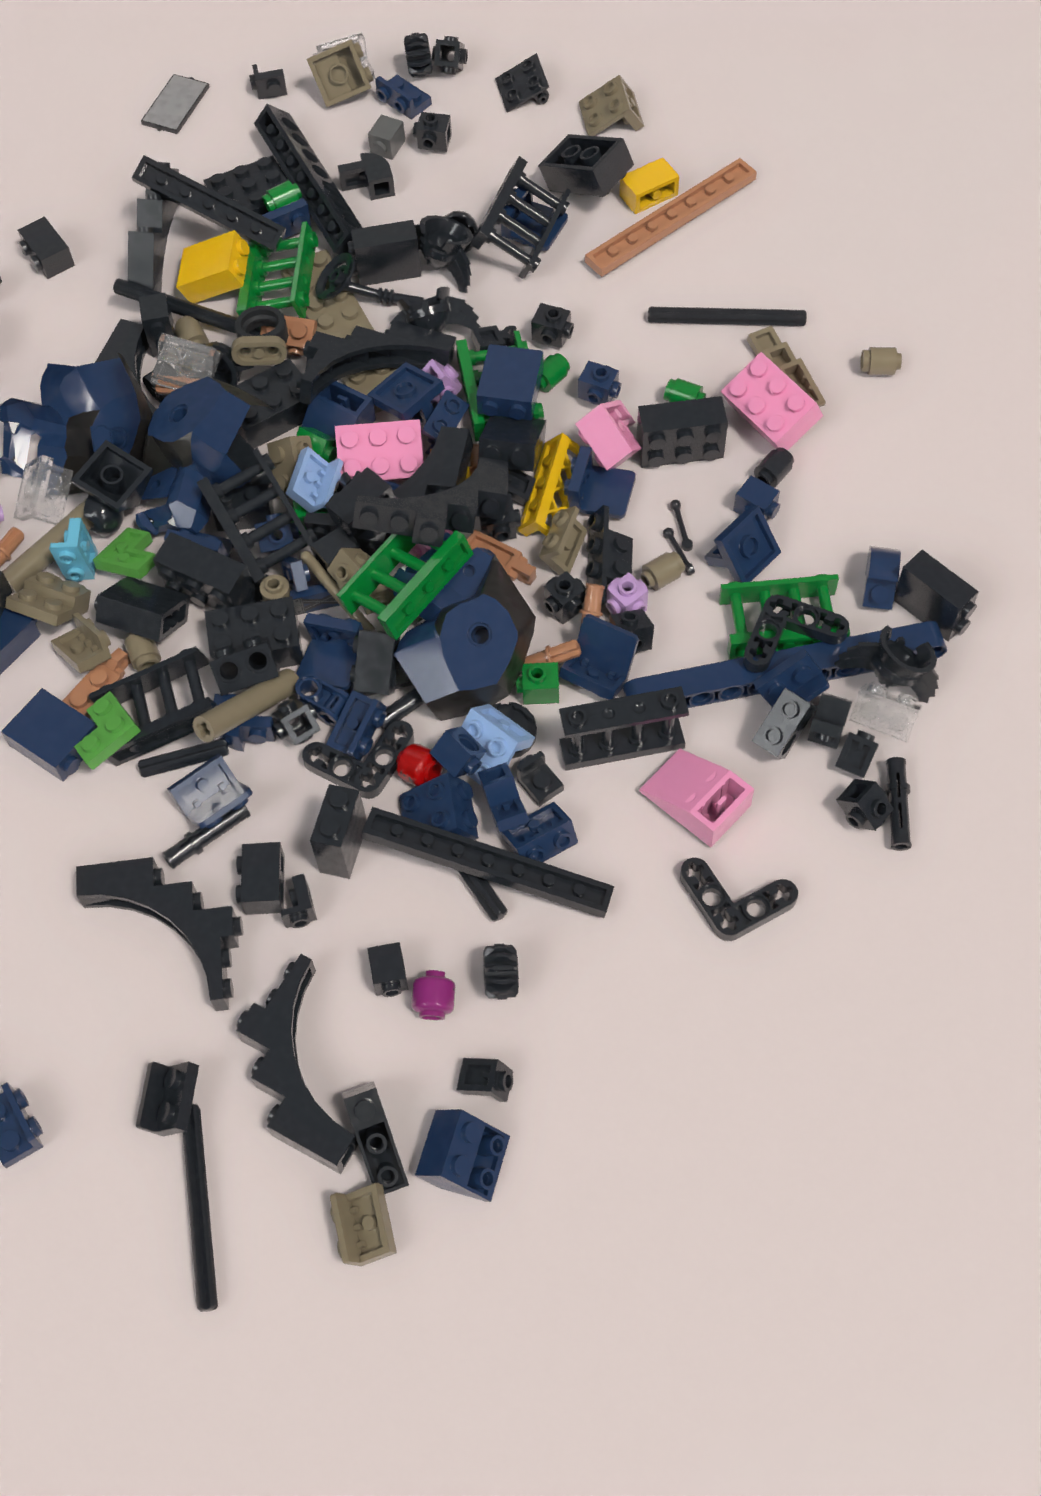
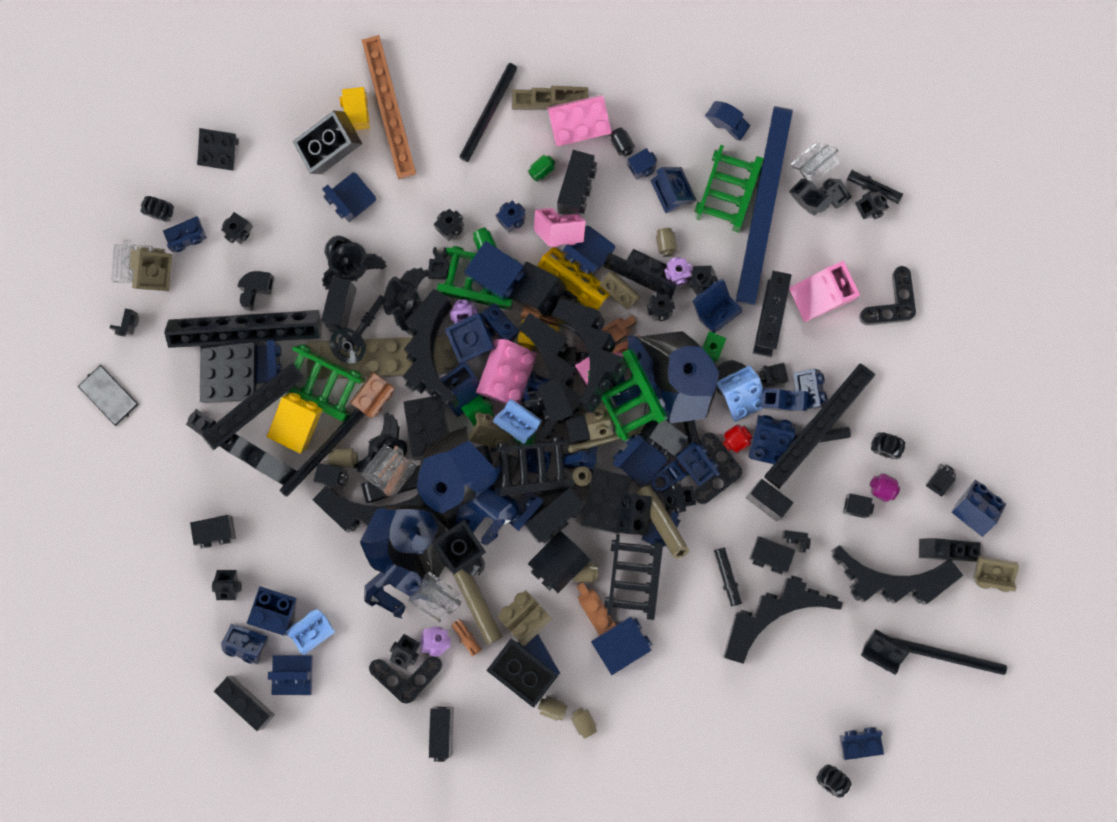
camera: 60 degrees left, 20 degrees up
(76, 552) = (495, 586): medium azure bracket -> none
(84, 645) = (567, 607): dark tan bracket -> none
(113, 731) = (645, 607): bright green plate -> none
(126, 554) = (510, 562): bright green plate -> none
(182, 757) = (668, 577): black axle -> none
(209, 793) = (709, 564): bracket -> none
(259, 350) = (395, 420): dark tan plate -> none
(261, 316) = (361, 403): black tyre -> none
(281, 195) = (258, 354): green brick -> none
(386, 137) = (223, 262): dark grey brick -> none
(441, 51) = (167, 187): black brick -> none
(458, 752) = (746, 412): dark blue brick -> none
(498, 215) = (349, 220): black fence -> none
(559, 653) = (700, 328): nougat axle -> none
(592, 600) = (679, 295): nougat axle -> none
(608, 105) = (270, 102): dark tan bracket -> none
(668, 533) = (637, 225): black hinge -> none
(687, 544) = (649, 218): black hinge -> none
(779, 622) = (741, 194): black beam -> none
(784, 723) = (806, 223): brick -> none
(797, 674) = (783, 206): dark blue bracket -> none
(880, 361) = (571, 38): dark tan brick -> none
(895, 663) = (799, 143): black helmet -> none
(936, 595) = (761, 96): black brick -> none

